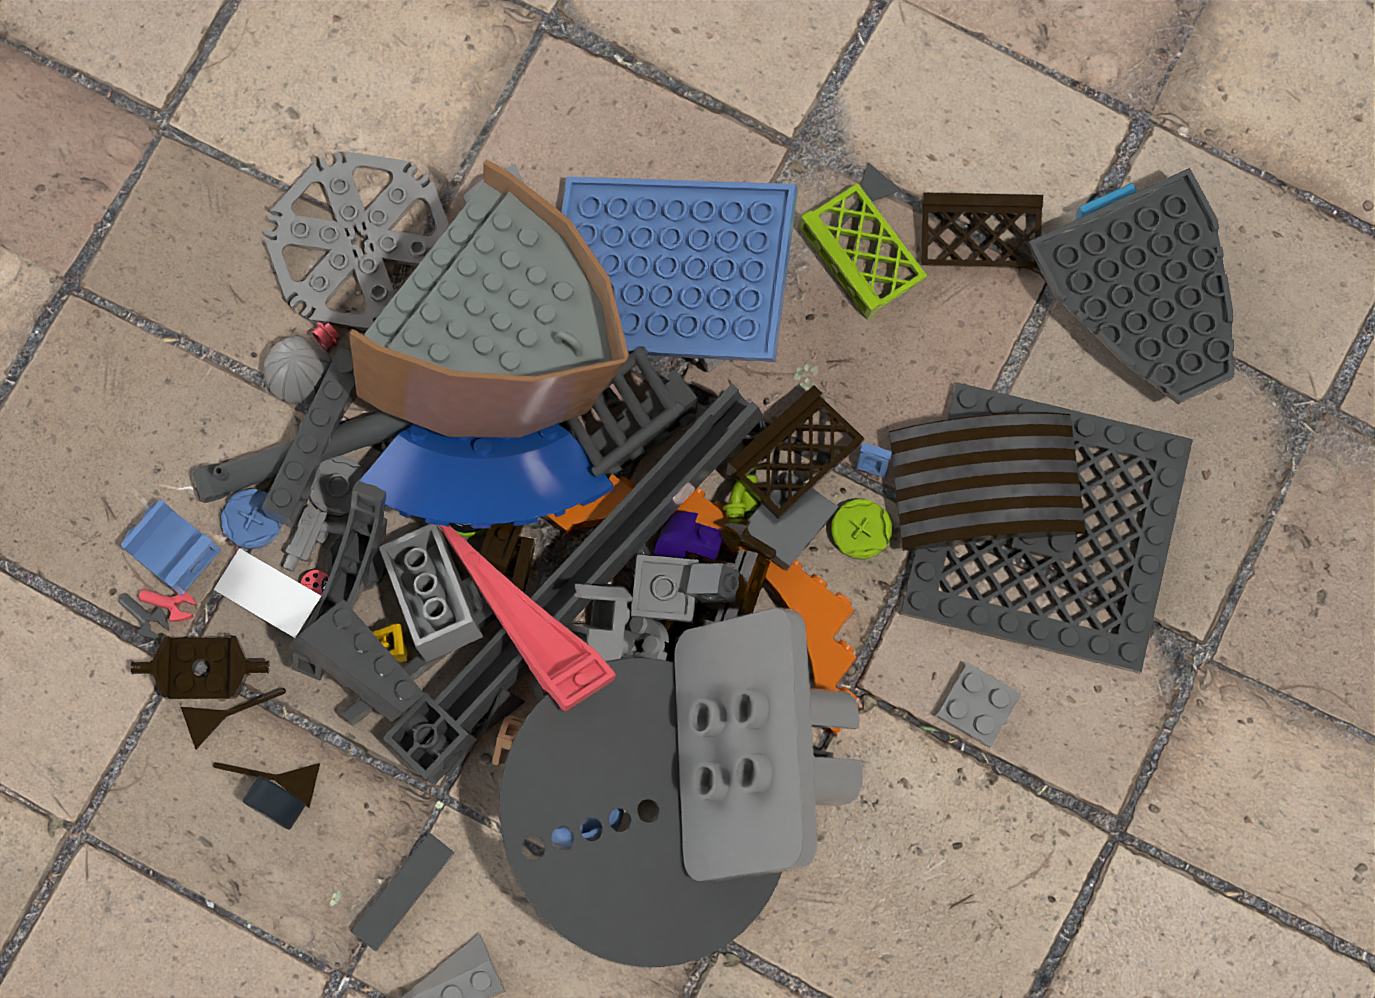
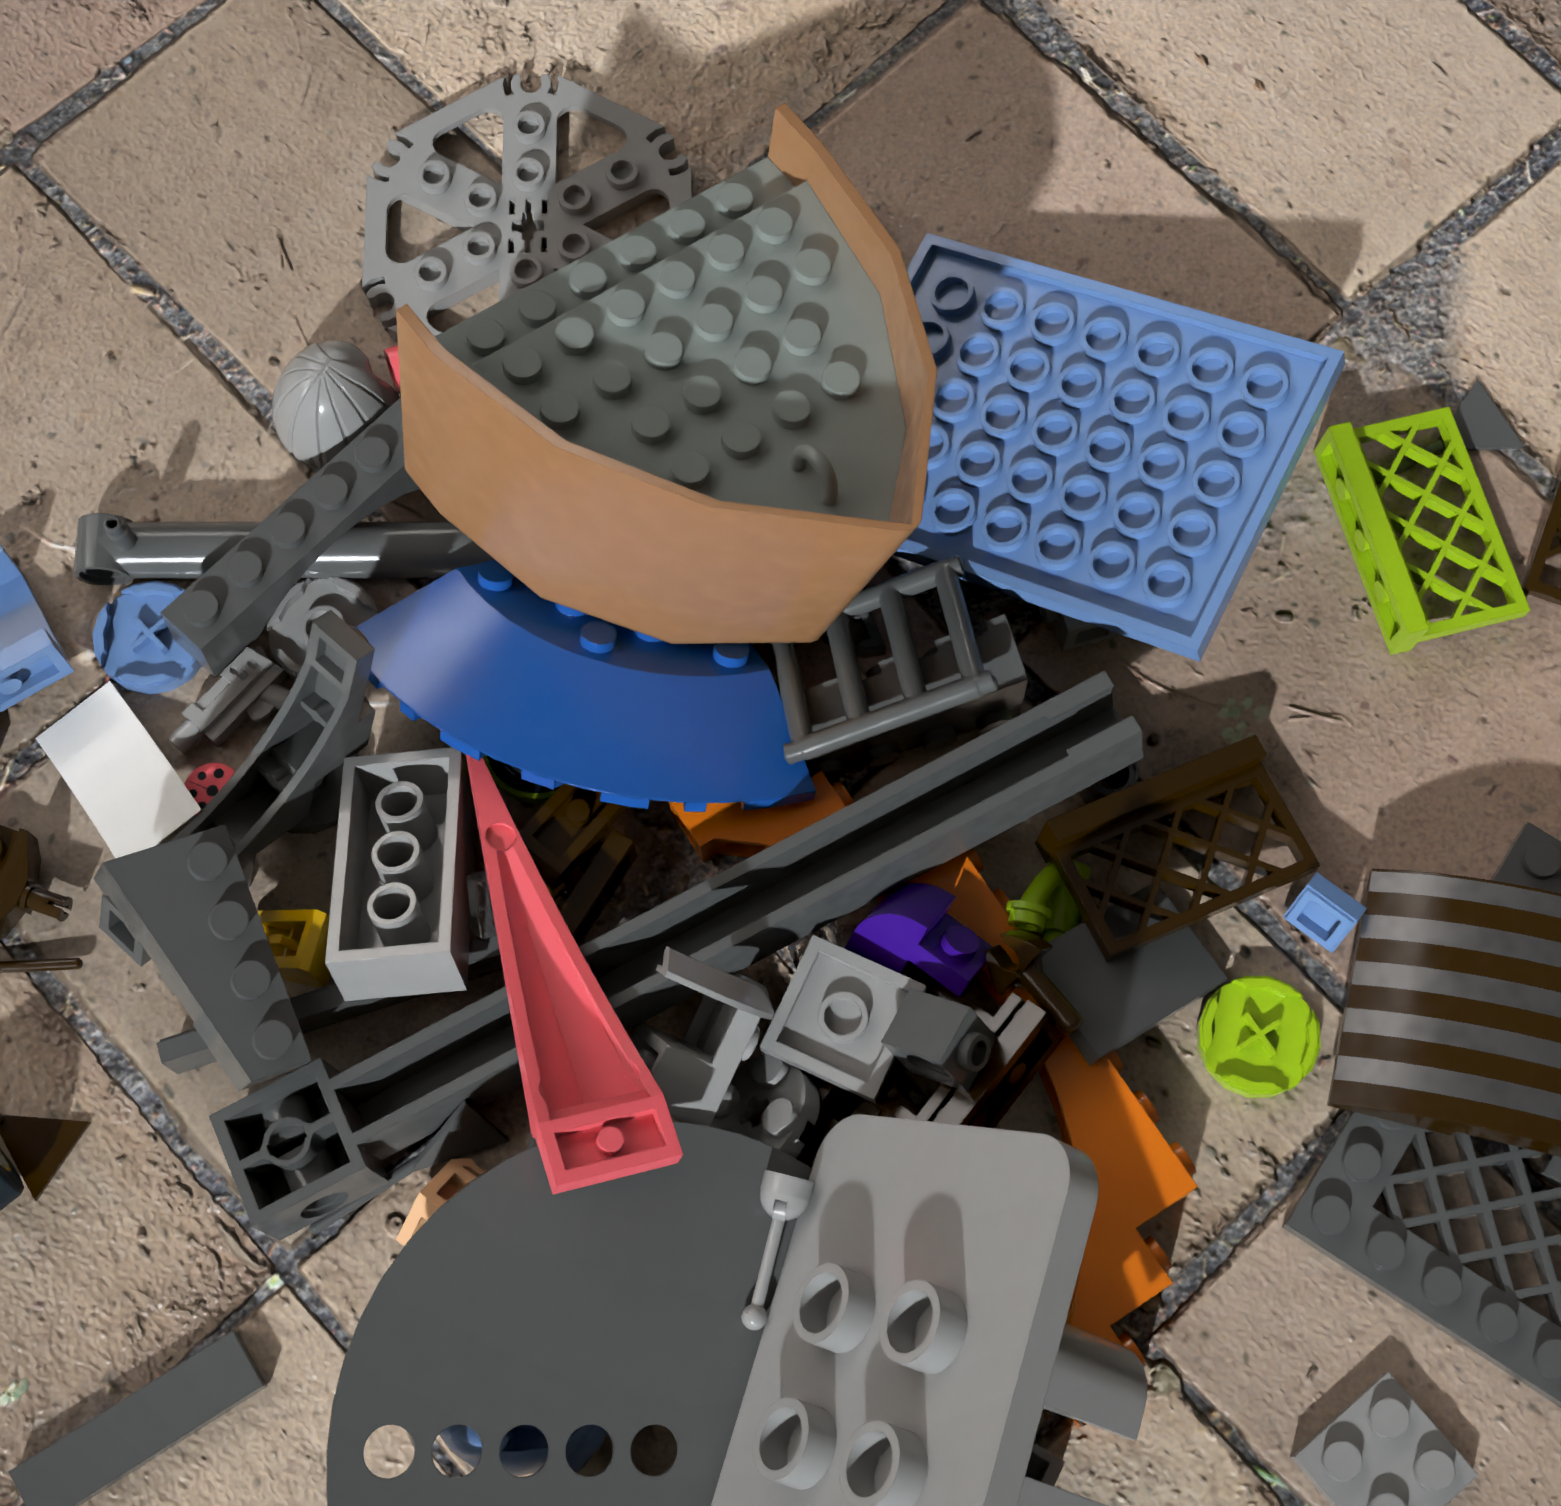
camera: 20 degrees right, 5 degrees down
(667, 680) = (784, 1200): none -> light grey hinge

